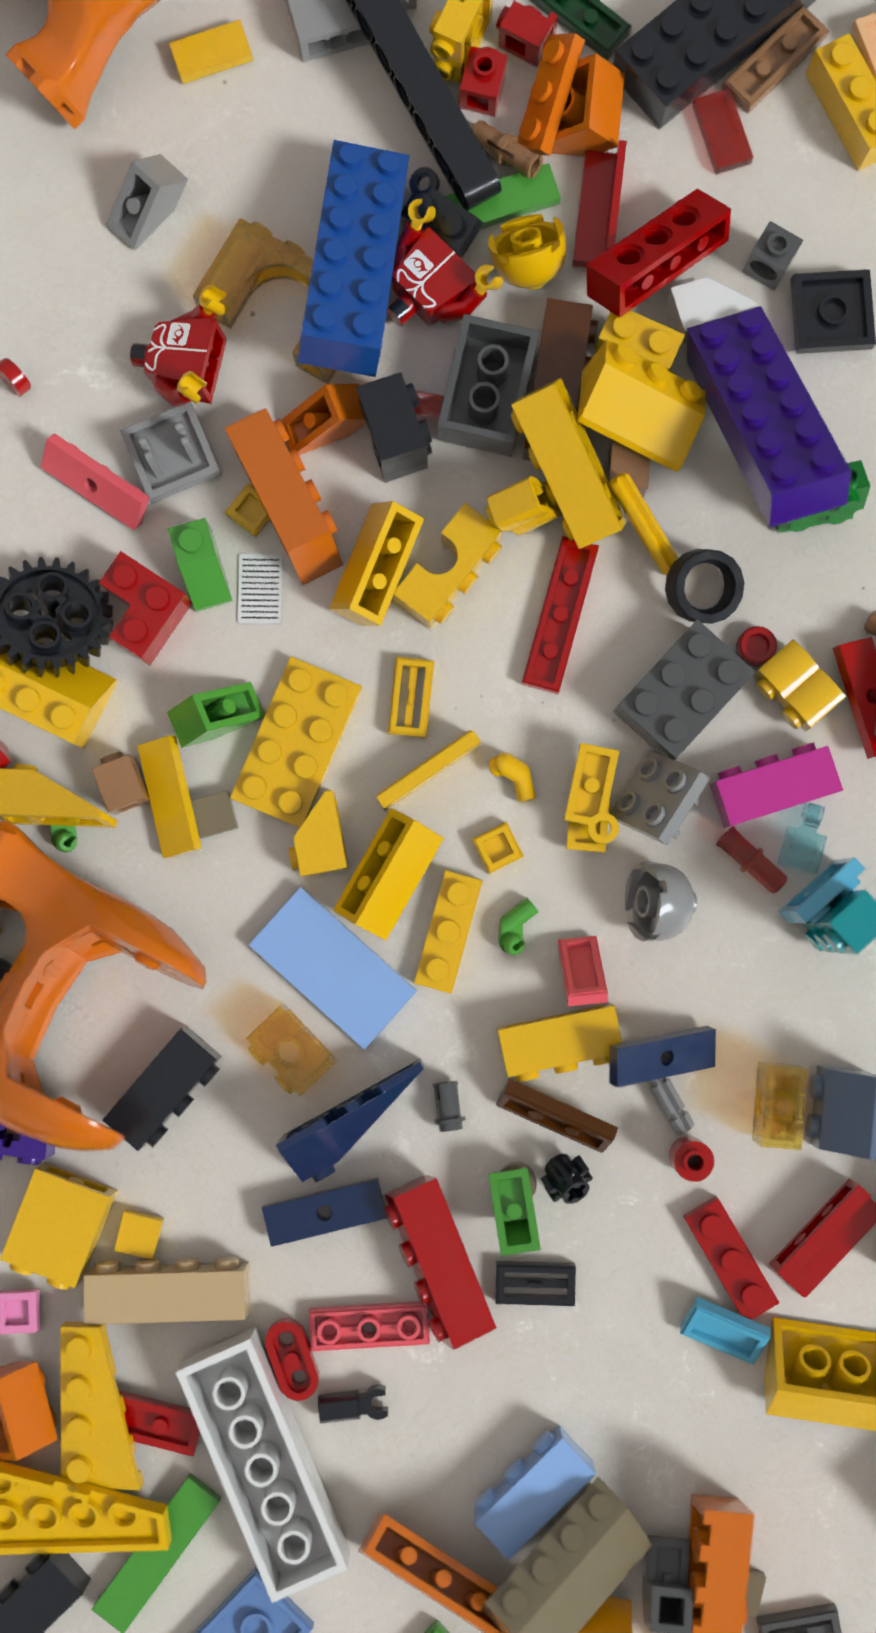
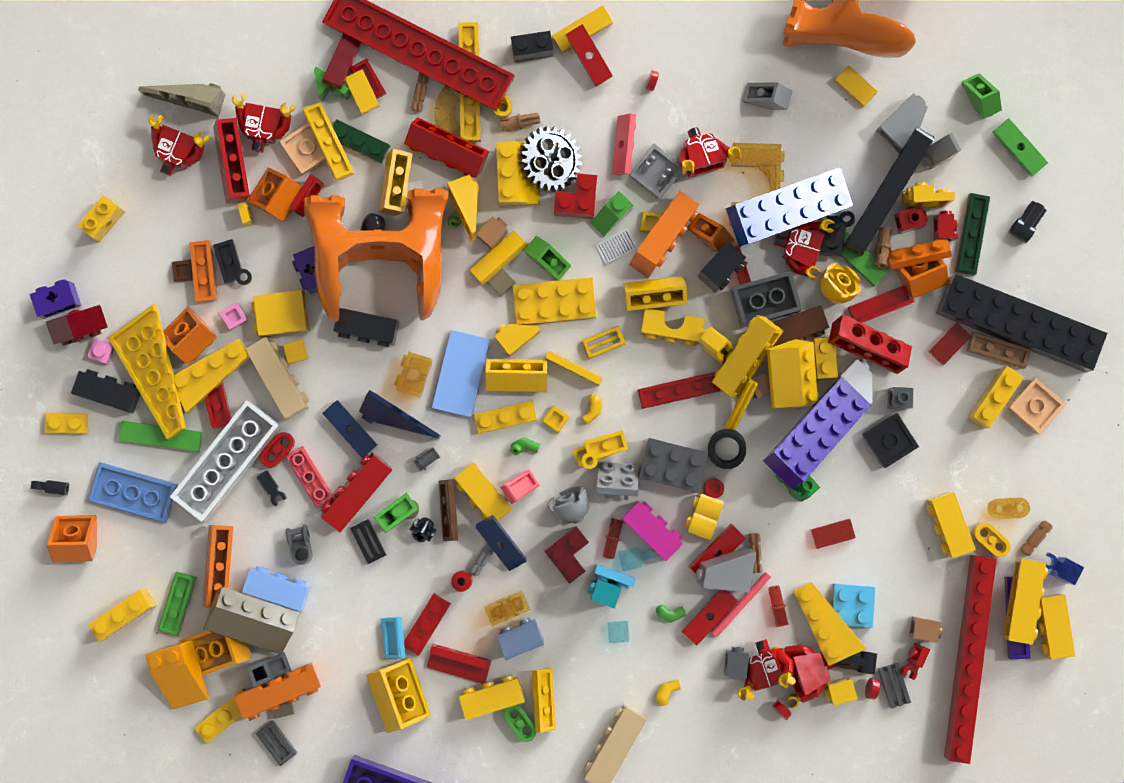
camera: 60 degrees right, 0 degrees up
(474, 1408) = (299, 542): none -> dark grey piece
(735, 959) = (563, 552): none -> dark red brick

